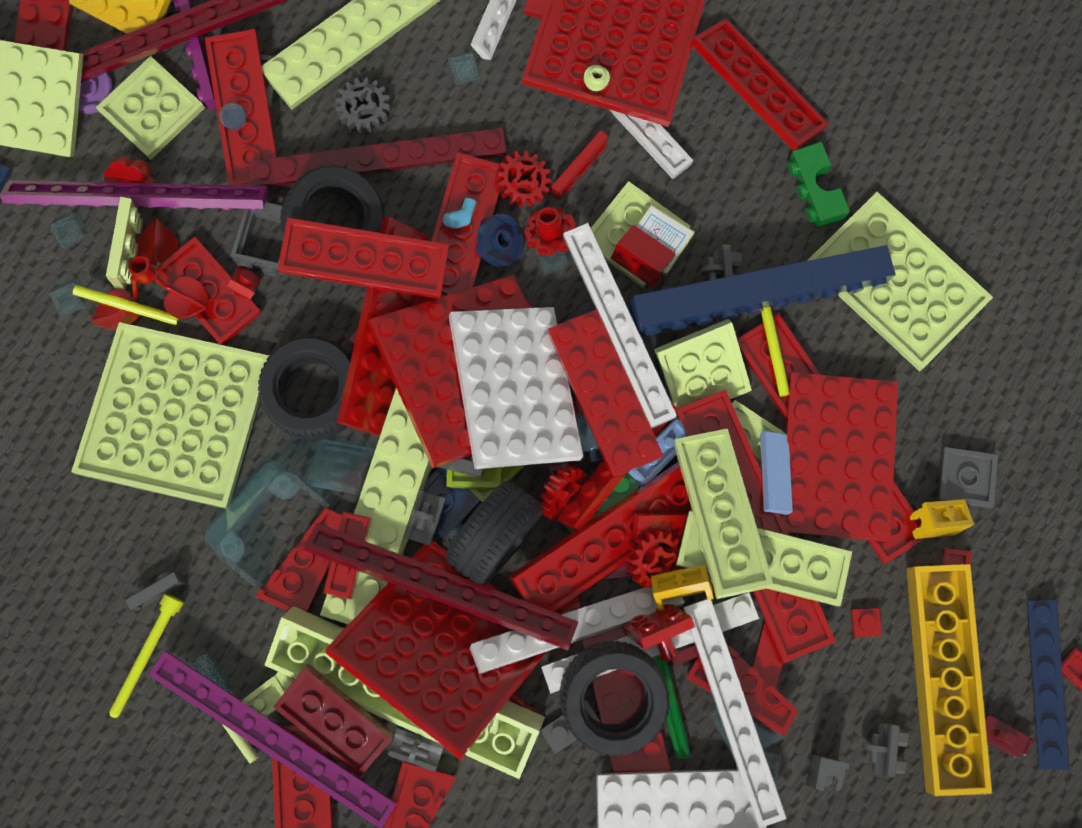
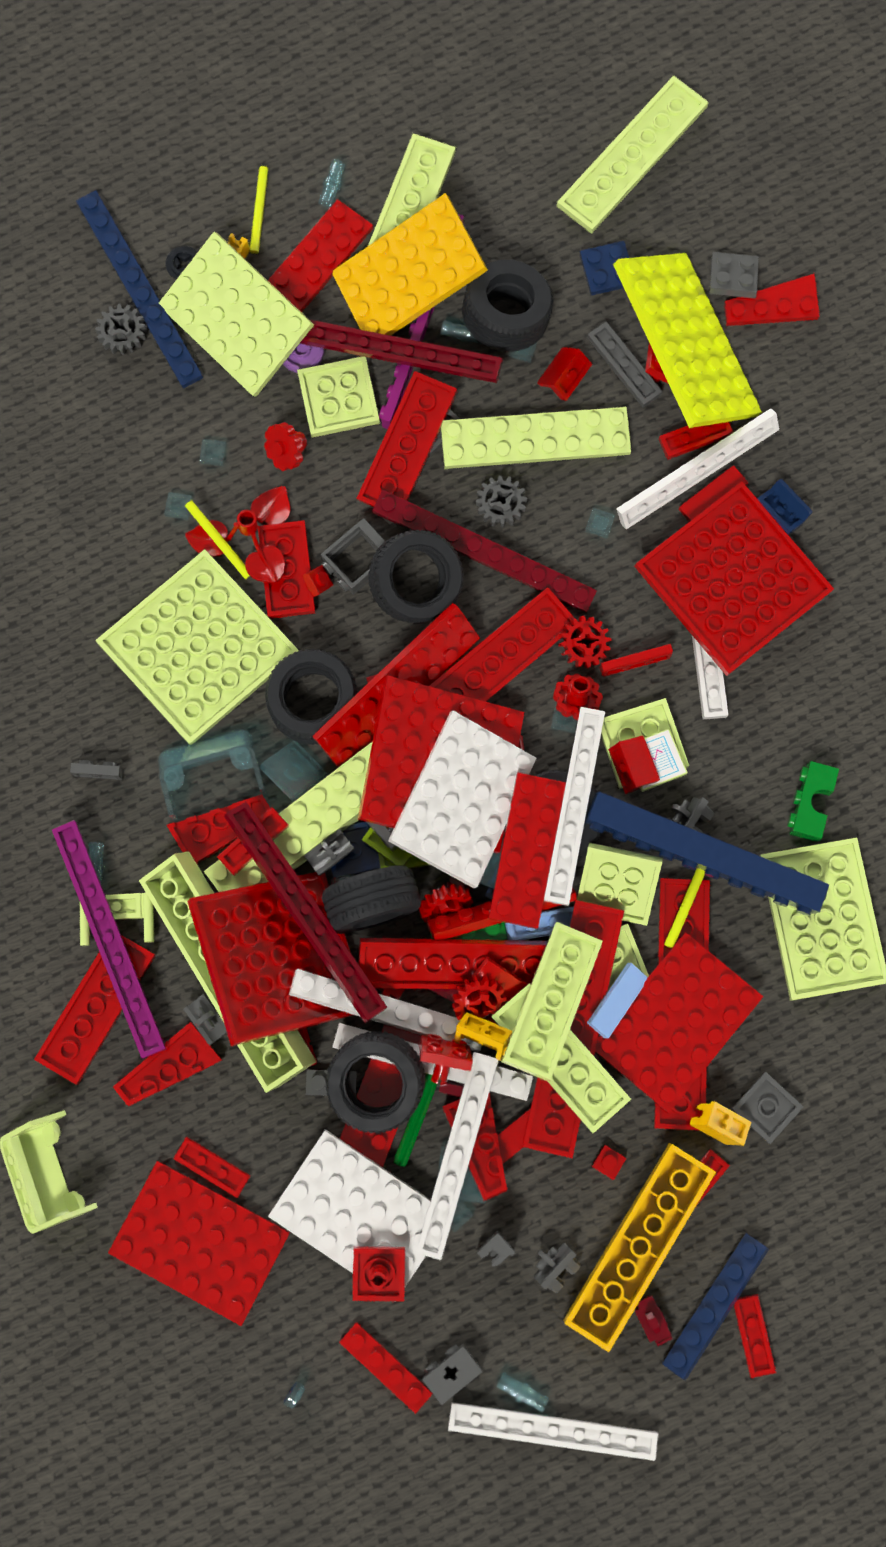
camera: 35 degrees right, 0 degrees up
(123, 243) = (247, 493): yellowish green plate -> none
(142, 194) = (281, 461): magenta plate -> none
(168, 608) = (99, 790): neon yellow piece -> none
(233, 116) = (394, 446): clear light blue tile -> none
(333, 720) = (161, 955): dark red plate -> none
(363, 258) = (415, 626): red plate -> none
(461, 217) = (515, 641): medium azure arm -> none
(488, 243) = (521, 674): dark blue plate -> none
(593, 83) = (689, 605): yellowish green plate -> none
(759, 84) = (824, 690): red plate -> none

